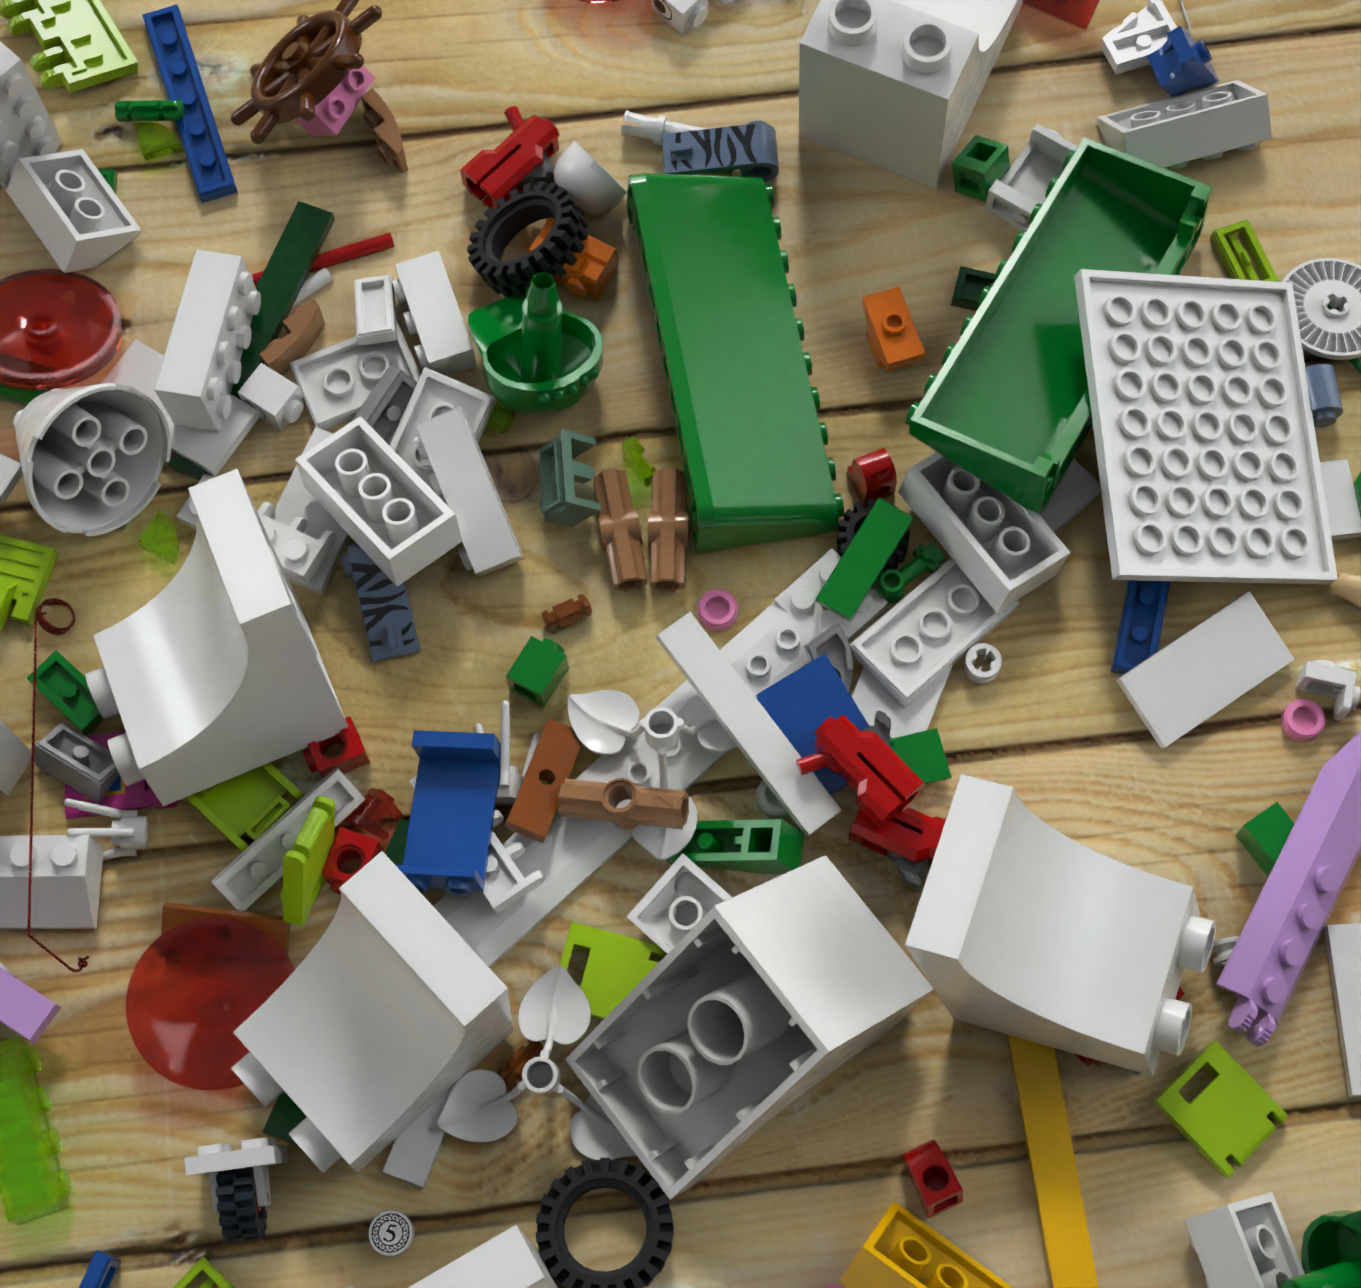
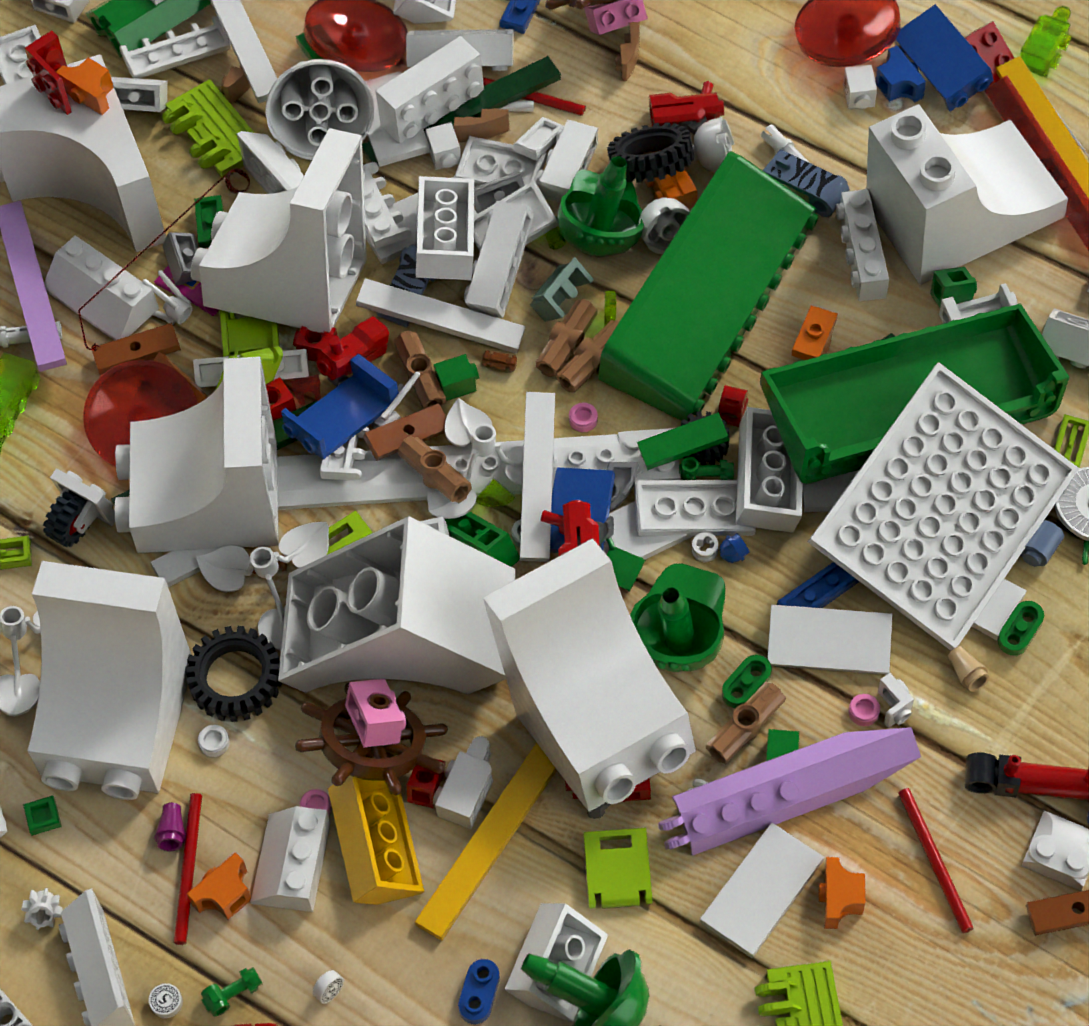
camera: 40 degrees right, 10 degrees down
(100, 572) = (268, 163): none -> white slope
(136, 897) = (136, 347): none -> dark orange tile
(157, 275) = (493, 44): none -> white slope
(399, 713) = (366, 338): none -> red piece
(454, 610) = (440, 315): none -> white tile
(469, 681) = (415, 359): none -> medium nougat piece
(615, 310) = (661, 222): none -> white cylinder
(705, 778) = (495, 495): none -> clear neon green tile
(846, 1163) = (376, 726): none -> reddish brown brick
(847, 184) = (863, 245): none -> white brick
(981, 1147) = (466, 785): none -> white hinge
(1017, 642) = (733, 549): none -> blue plate
(1052, 762) = (682, 618): none -> green piece
(1163, 787) = (744, 682): none -> green plate
(1205, 807) = (735, 735): none -> medium nougat piece

